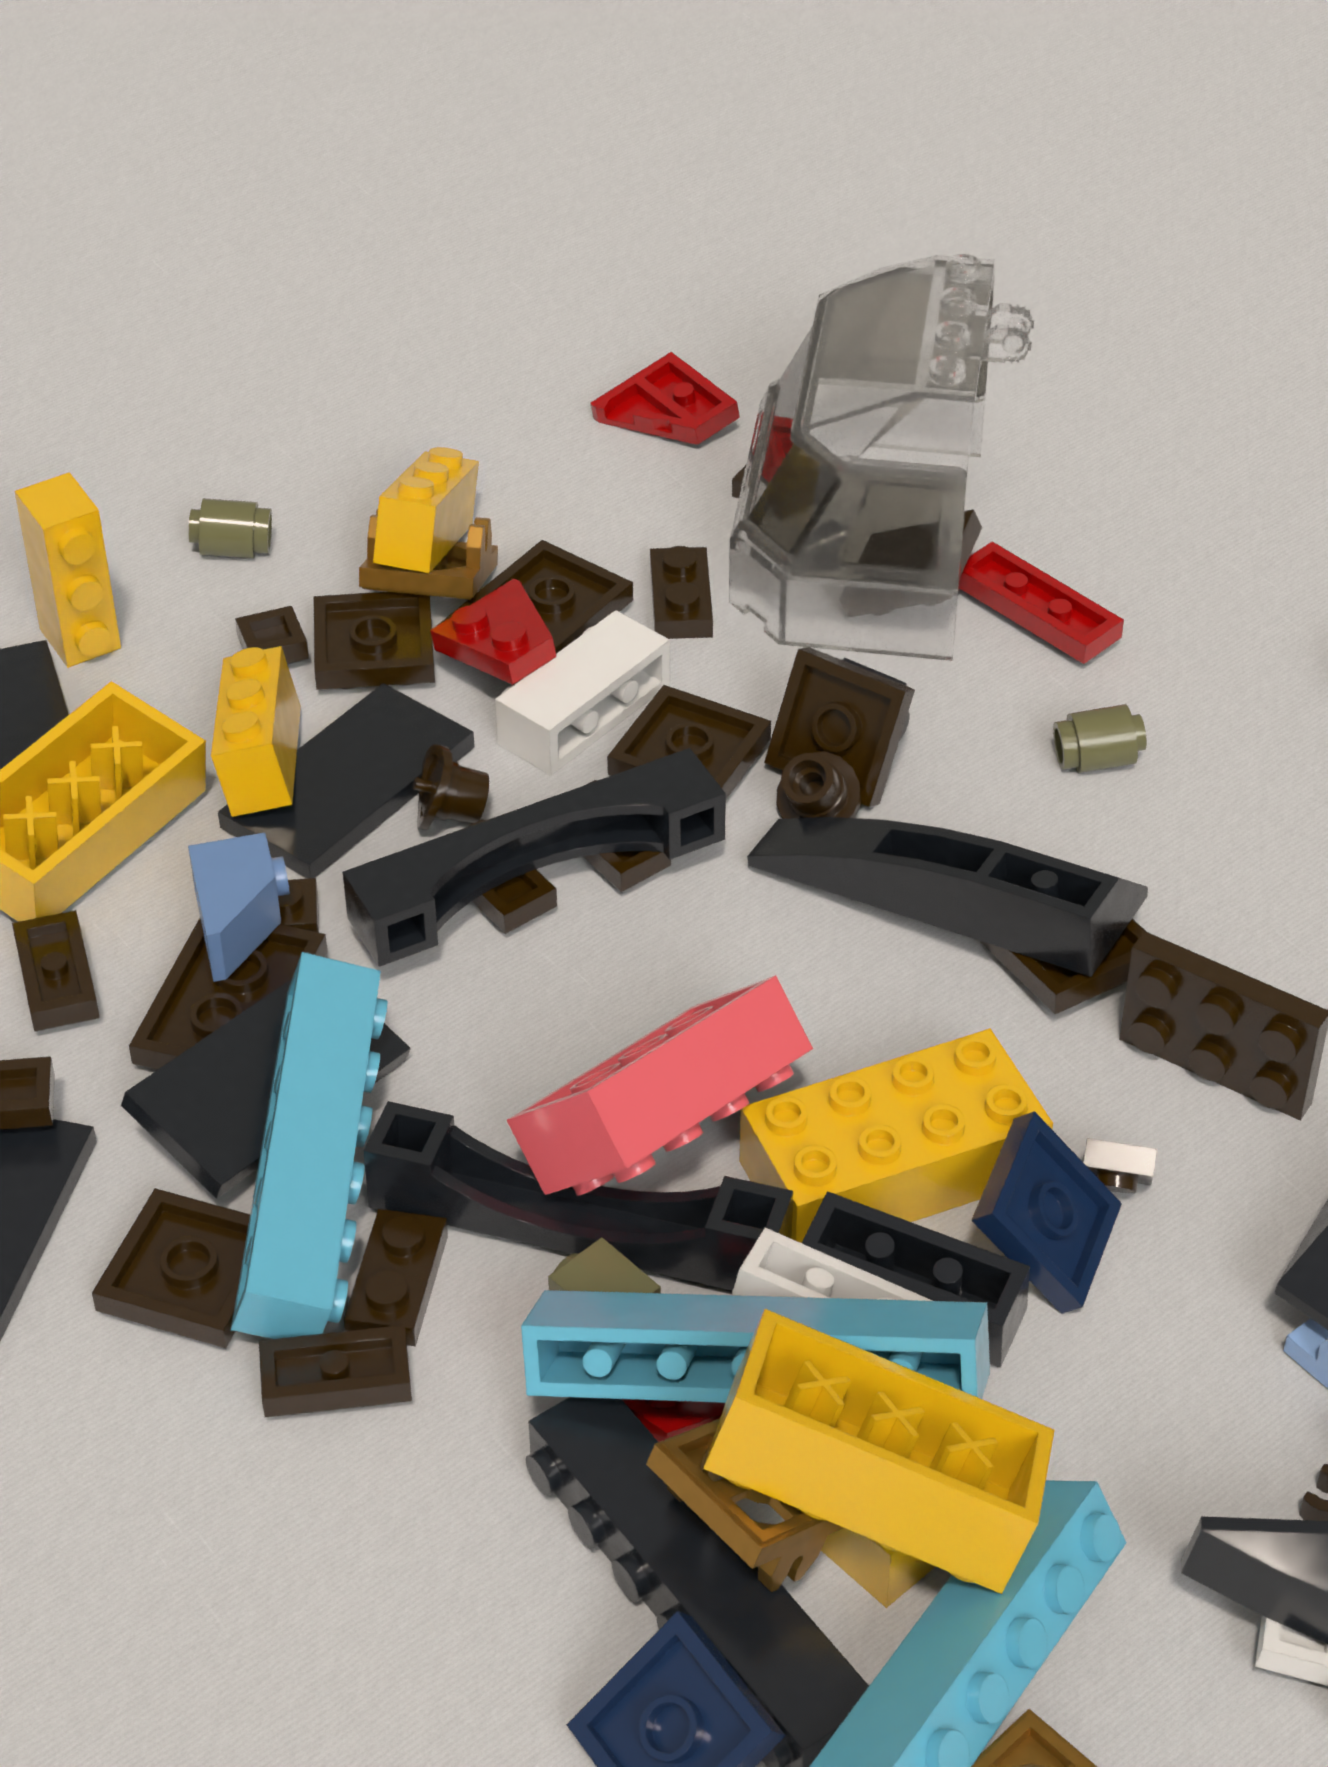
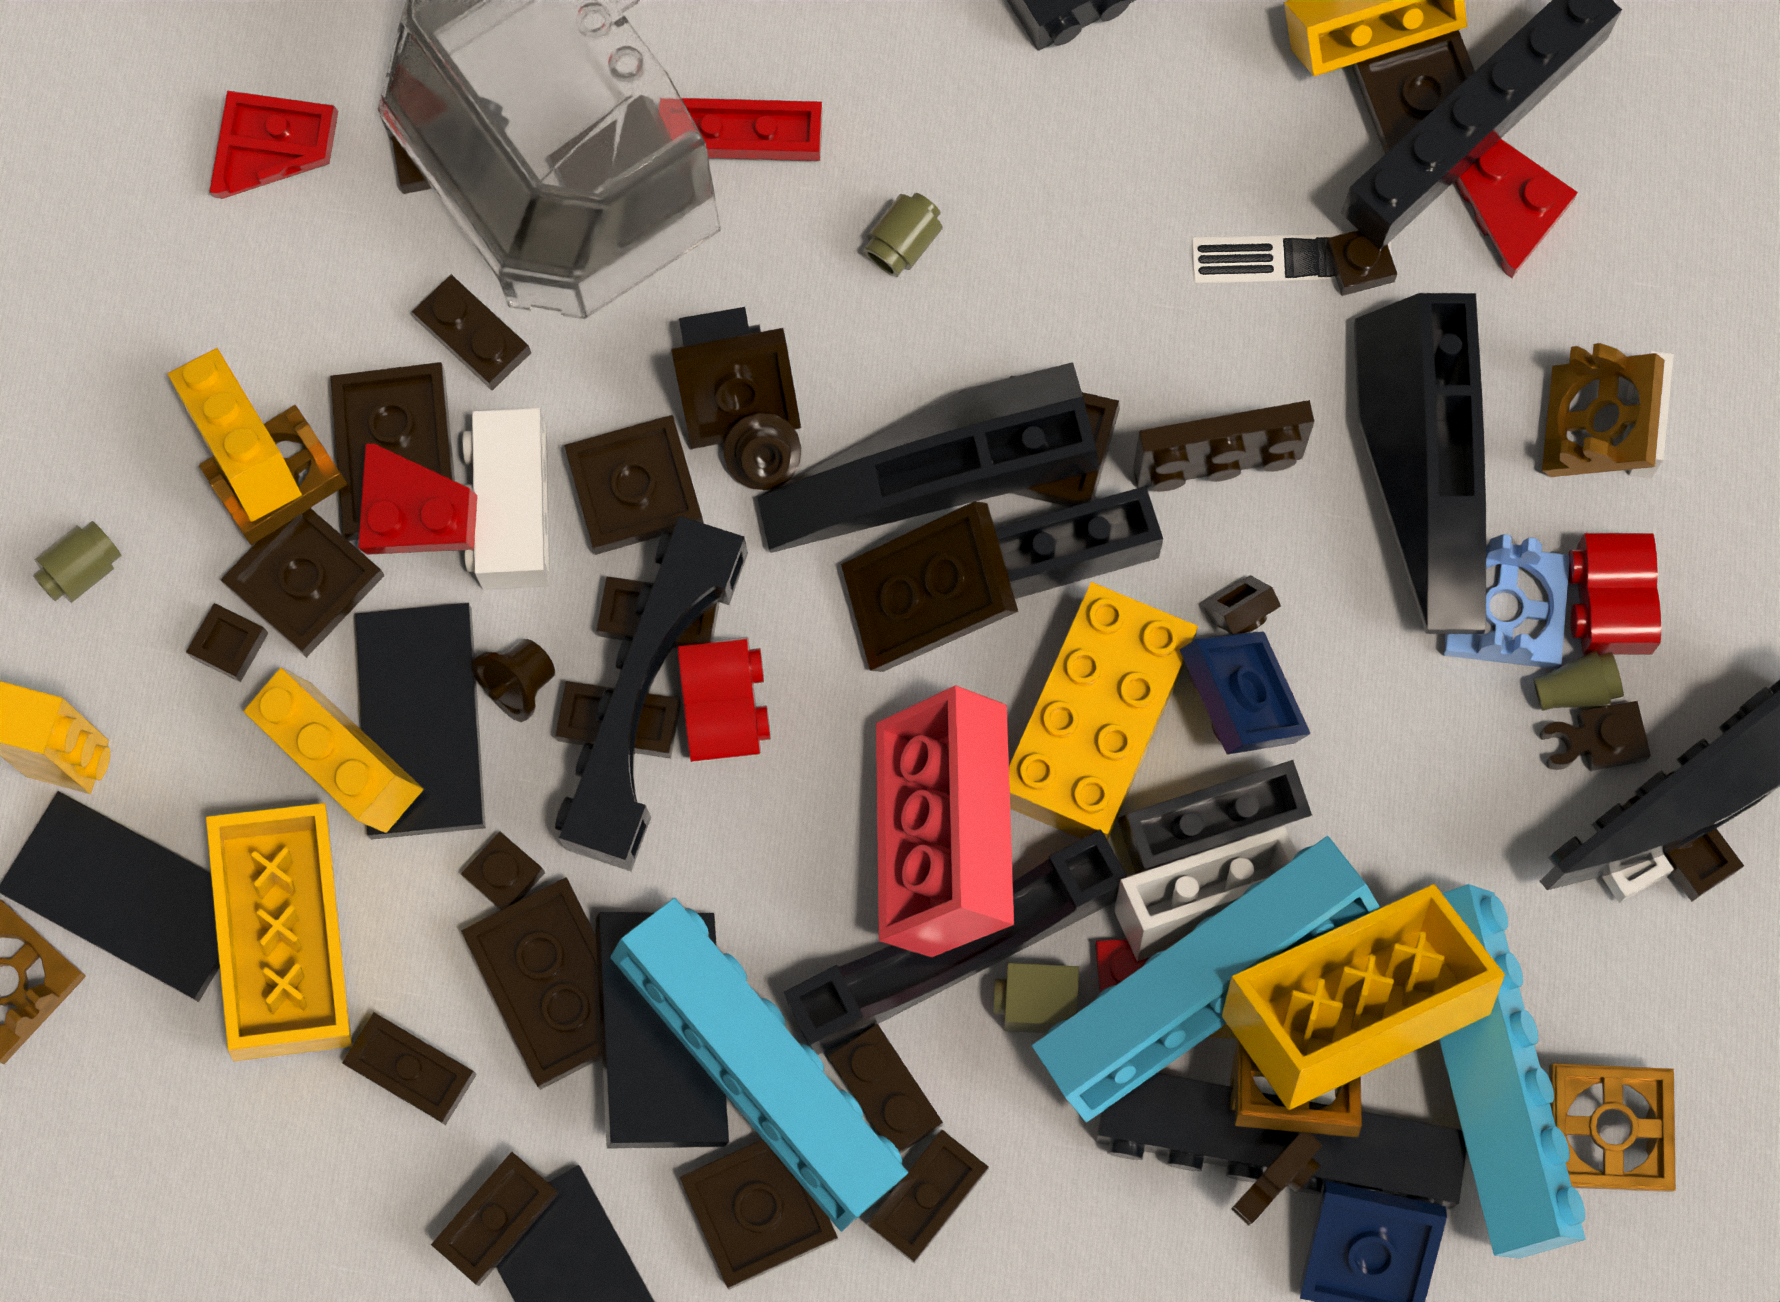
camera: 40 degrees left, 30 degrees up
(236, 897) = (491, 913): medium blue slope -> none
(587, 908) = (721, 698): none -> red brick
(656, 1560) = (1291, 1168): none -> dark brown plate
(850, 939) = (929, 587): none -> dark brown plate
(1037, 1014) = (1080, 542): none -> black brick

